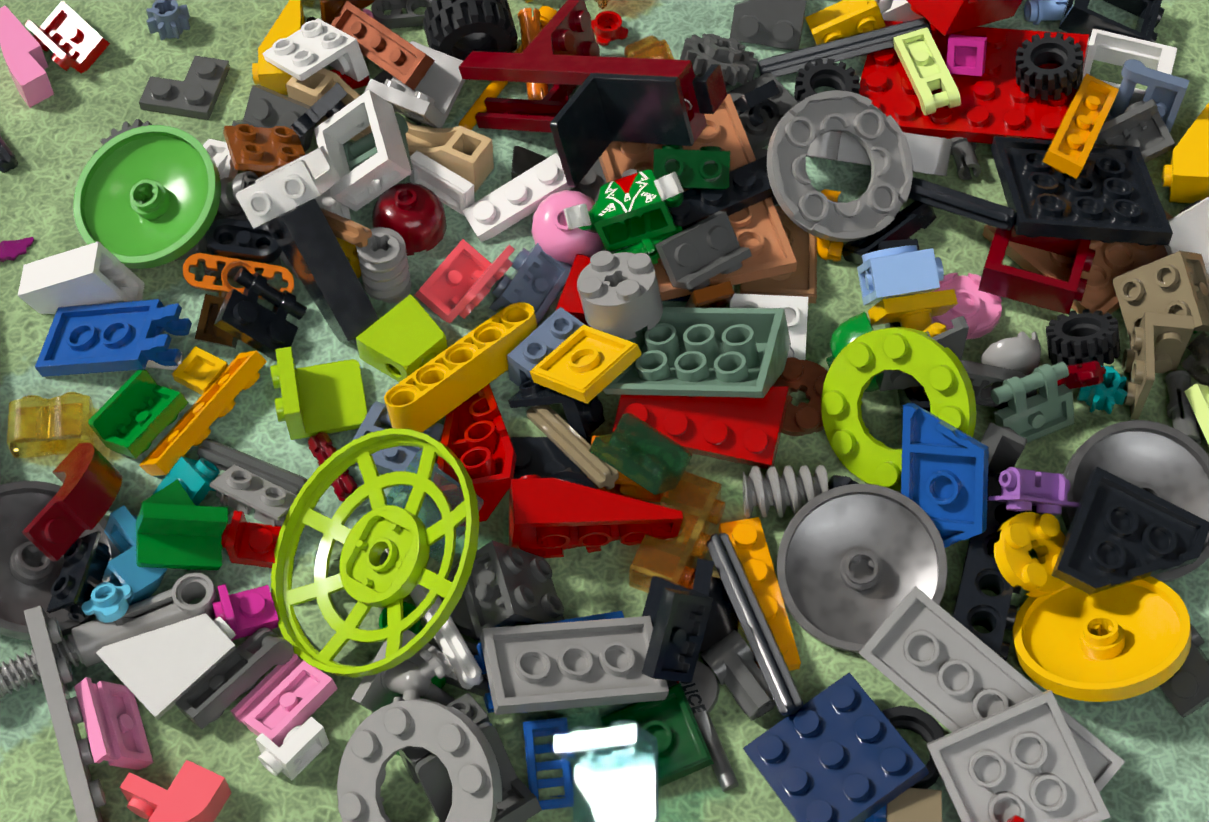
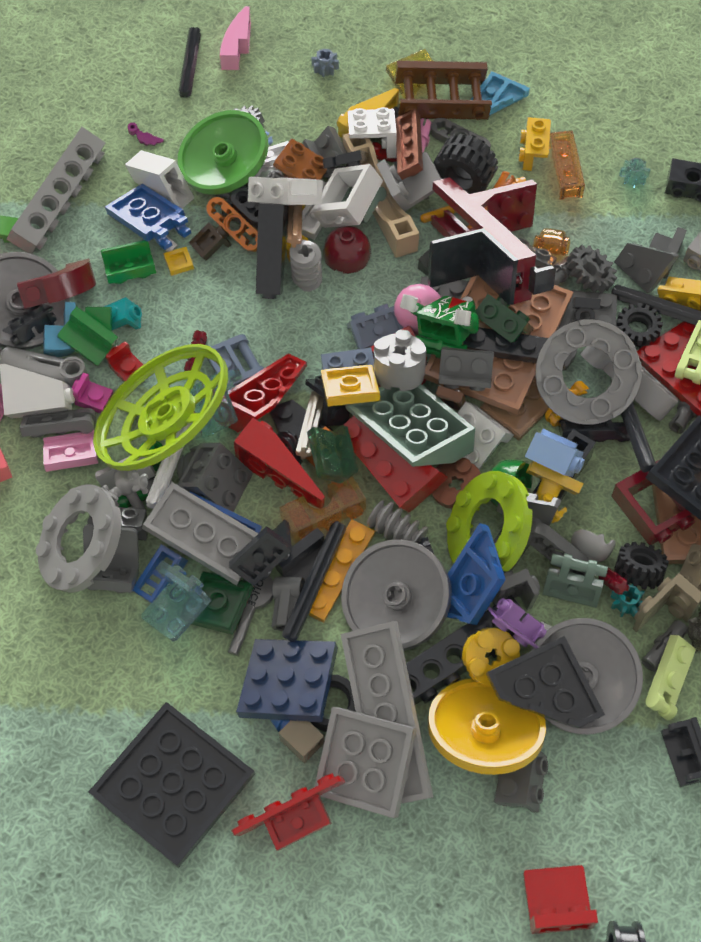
camera: 40 degrees right, 5 degrees up
(49, 425) = (86, 240): clear yellow brick -> none
(70, 38) = (267, 43): bracket -> none
(108, 602) = (29, 344): medium azure plate -> none
(187, 98) = (302, 113): dark grey plate -> none
(212, 404) = (168, 281): light orange plate -> none
(224, 457) = (156, 324): dark grey axle -> none
(247, 491) = (144, 339): light grey hinge -> none
(254, 323) = (219, 254): black plate -> none
(298, 749) = (52, 479): white bracket -> none
(318, 396) = (217, 311): lime bracket -> none
(401, 340) = (284, 315): lime torso -> none
(447, 185) = (379, 241): white tile -> none
(459, 370) = (291, 346): yellow beam -> none
(462, 281) = (339, 299): coral bracket -> none
(516, 198) = (402, 275): white plate -> none
(610, 20) = (555, 208): red plate -> none
(979, 308) = (592, 501): bright pink tile -> none

